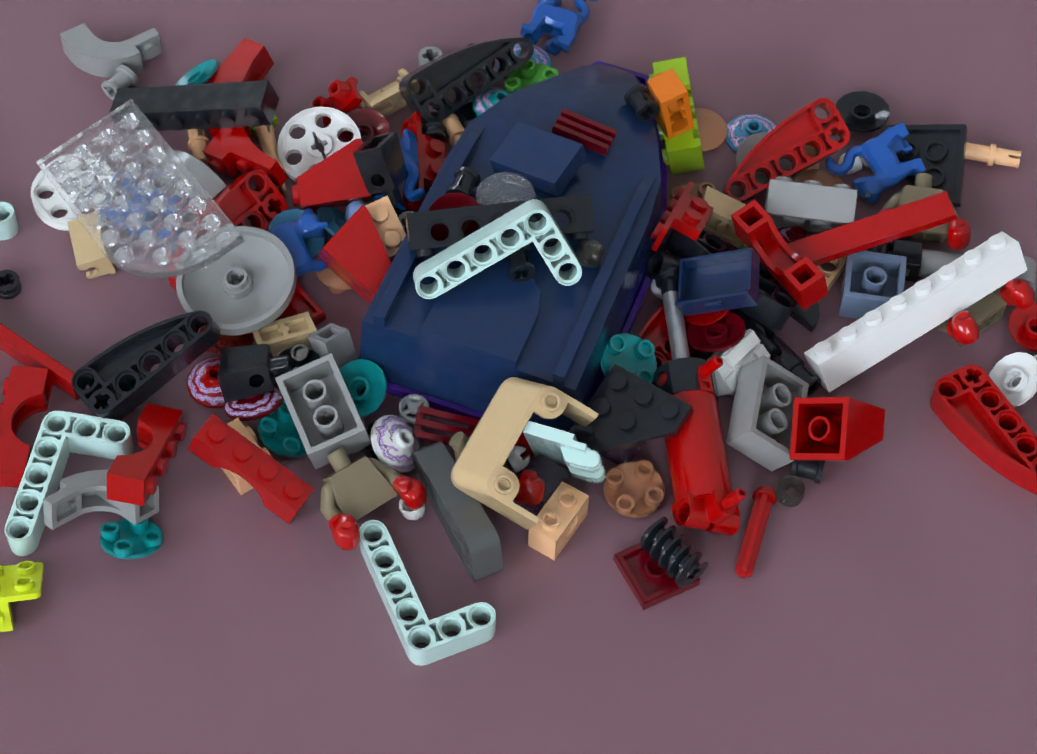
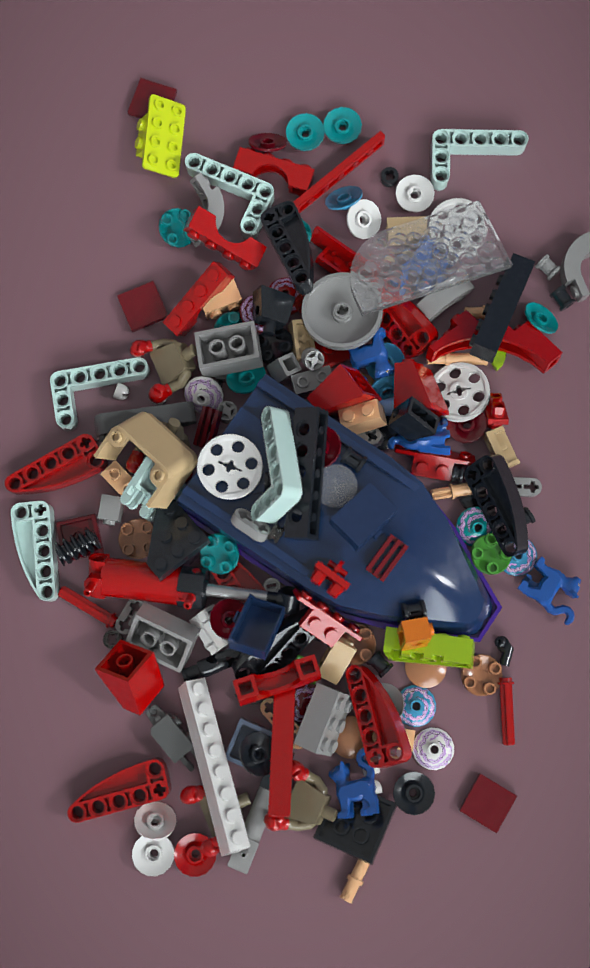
camera: 110 degrees right, 25 degrees up
(30, 236) = (415, 185): none -> white dish
(51, 327) = (343, 198): none -> dark azure dish
(81, 298) = (370, 219): none -> white dish
(149, 307) = (335, 255): none -> red bracket
(161, 62) = (562, 298): none -> black bush
(270, 563) = (142, 306): none -> dark red tile
(314, 307) = (315, 362): none -> light grey wheel
(342, 307) = (308, 381): none -> light grey brick
(421, 562) = (121, 392): none -> white hinge
(524, 327) = (226, 457): none -> white wedge
(561, 605) = (66, 471): none -> red beam
(587, 288) = (256, 530): none -> light grey beam
(602, 530) = (110, 510): none -> light grey brick
(625, 180) = (338, 583): none -> red hips
(648, 54) = (506, 650): none -> black arm
(651, 306) = (270, 581): none -> white hinge
(687, 627) = (30, 544): none -> light aqua beam
(700, 69) = (483, 677): none -> nougat dish
(716, 170) = (379, 664): none -> black bush
(724, 41) = (507, 714): none -> red axle
(751, 473) = (125, 614): none -> light grey beam
(792, 100) = (423, 744): none -> dish
(842, 44) = (488, 803): none -> dark red tile
(883, 257) = (261, 745): none -> black dish
(899, 380) = (171, 735): none -> dark grey hinge

